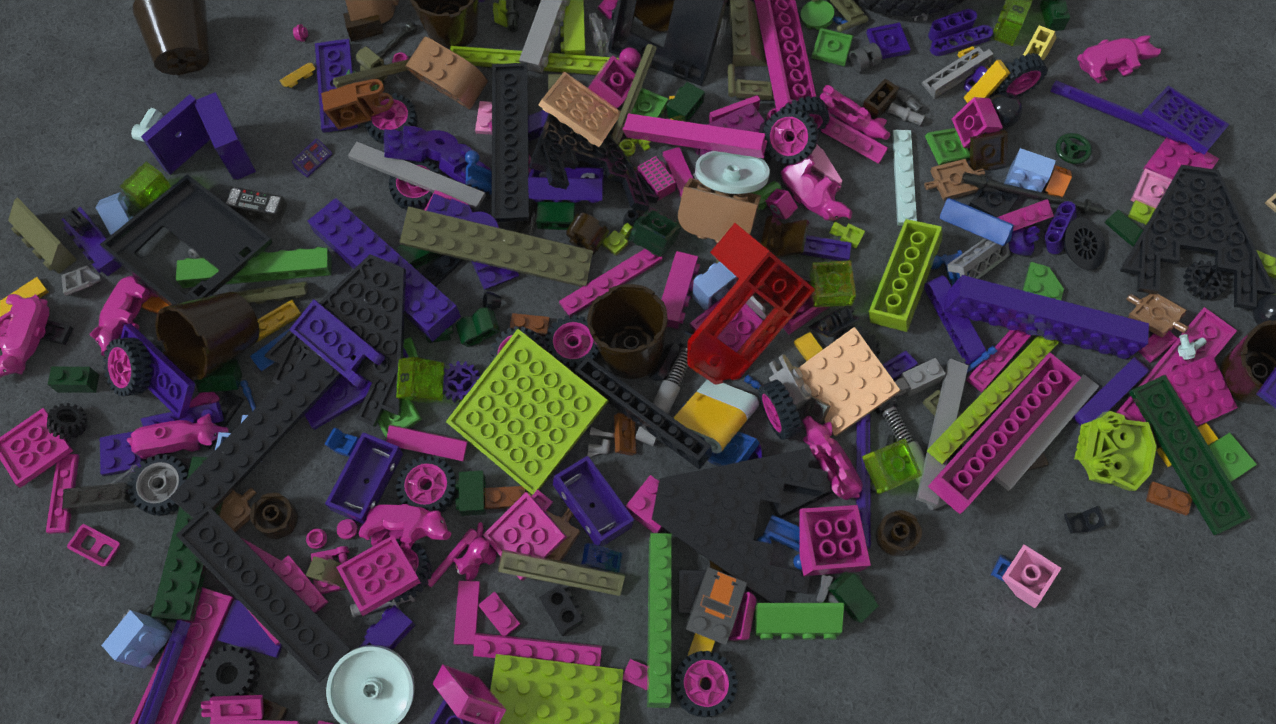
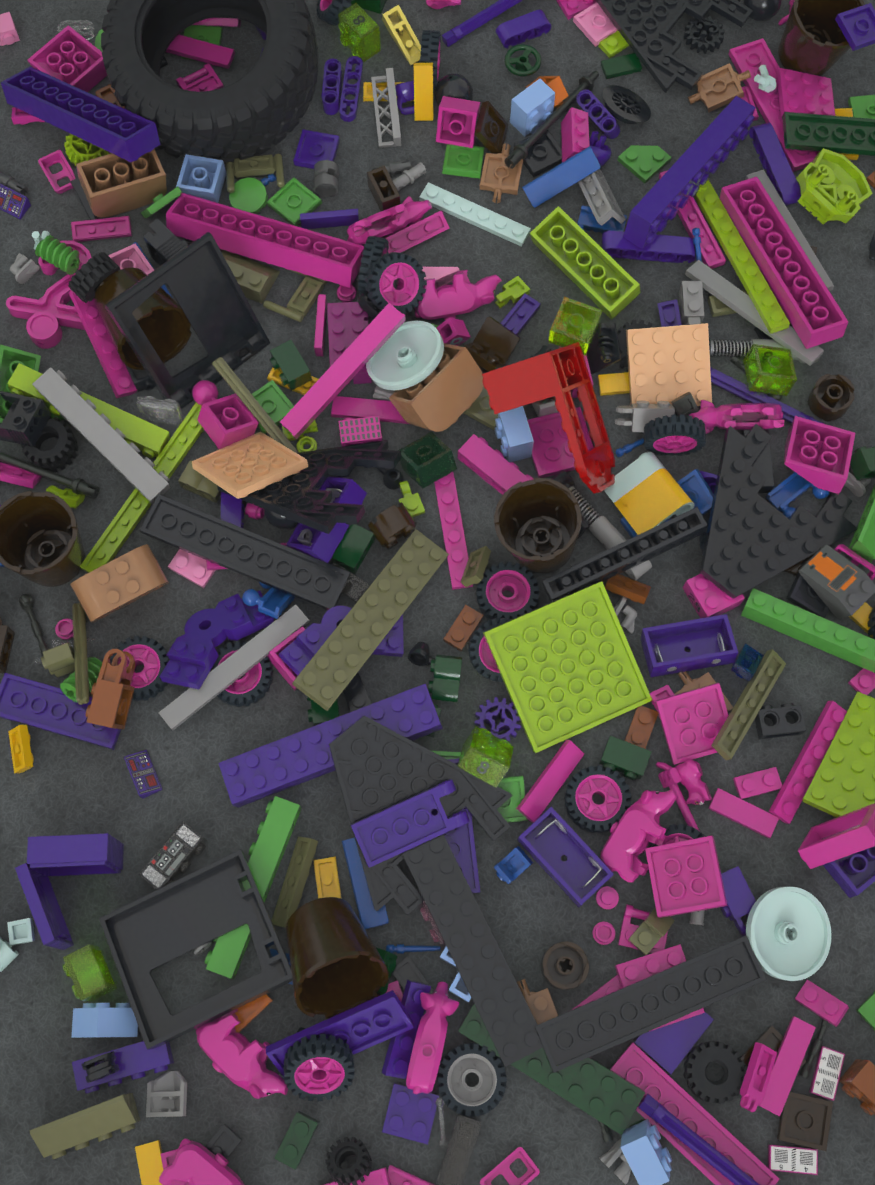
camera: 65 degrees left, 5 degrees up
(575, 308) = (476, 566): none -> olive plate
(831, 74) = (329, 218): none -> dark purple tile
(1107, 136) = (523, 28): none -> dark purple beam

